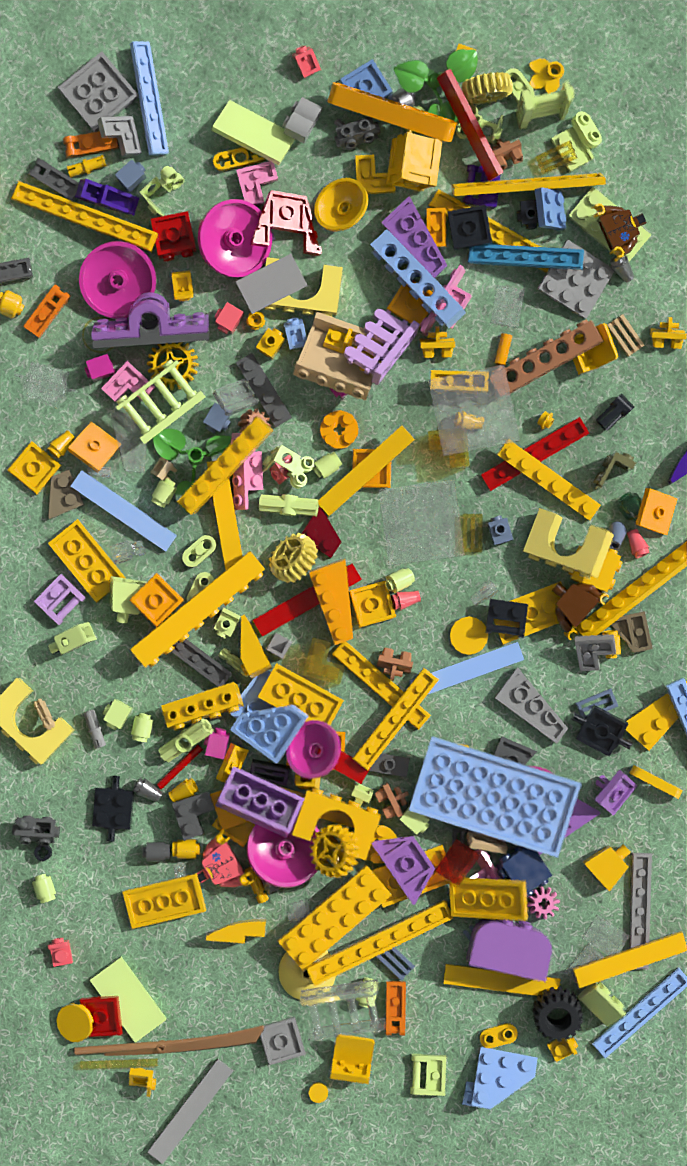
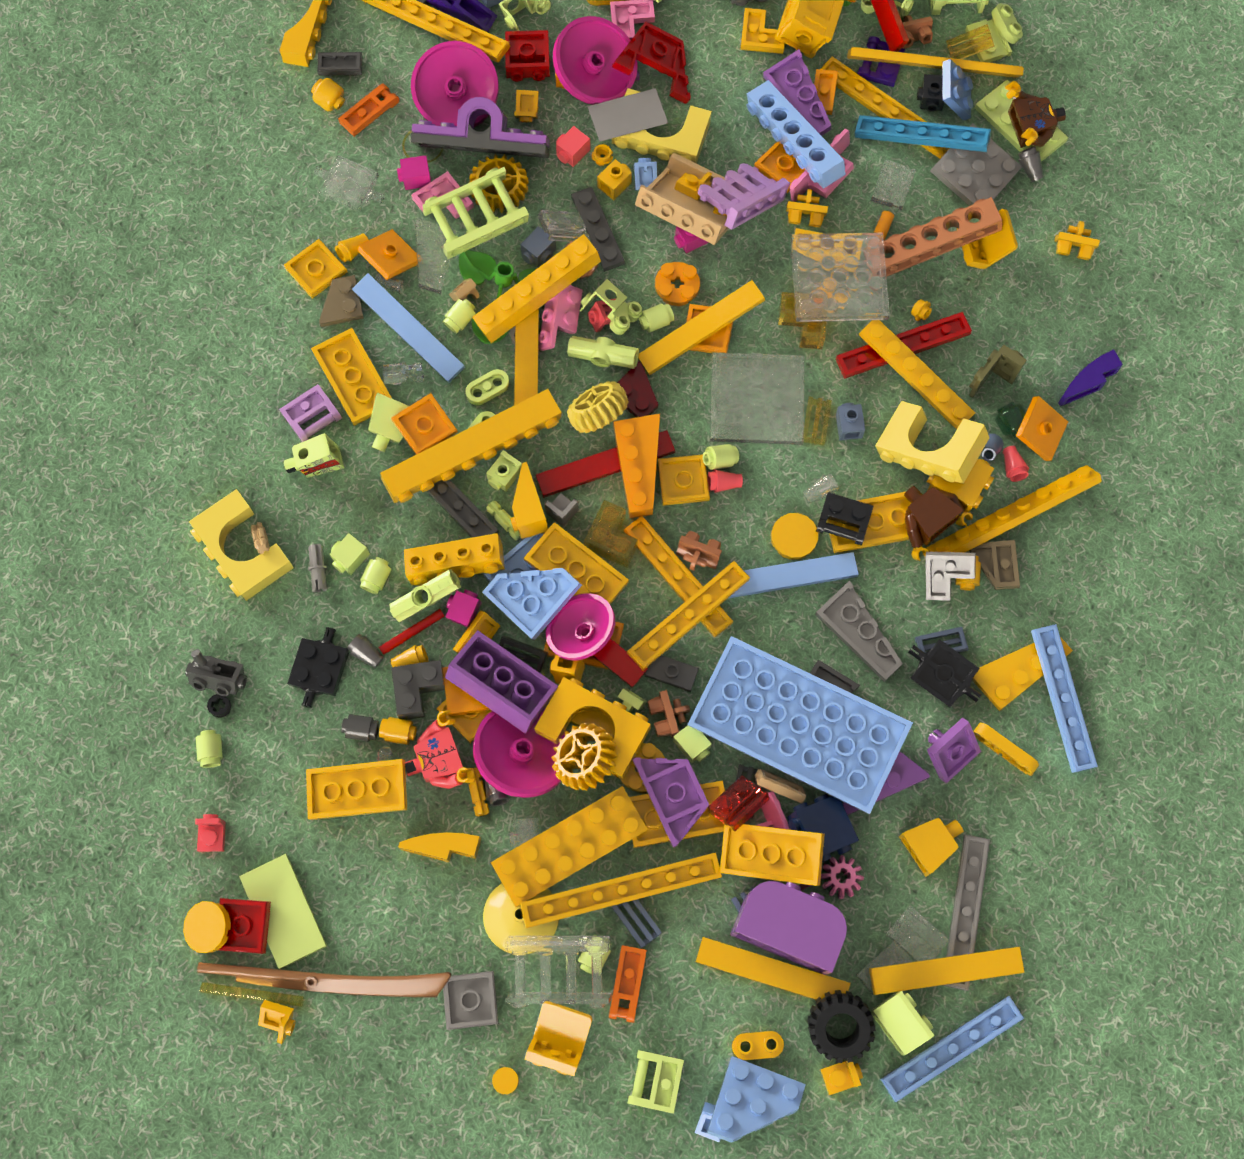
camera: 10 degrees right, 15 degrees down
(190, 1111) = (330, 1076): light grey tile -> none
(336, 199) = (721, 50): yellow dish -> none
(469, 227) = (862, 95): black plate -> none
(616, 322) = (1033, 233): tan tile -> none
(618, 409) = (1007, 312): black piece -> none

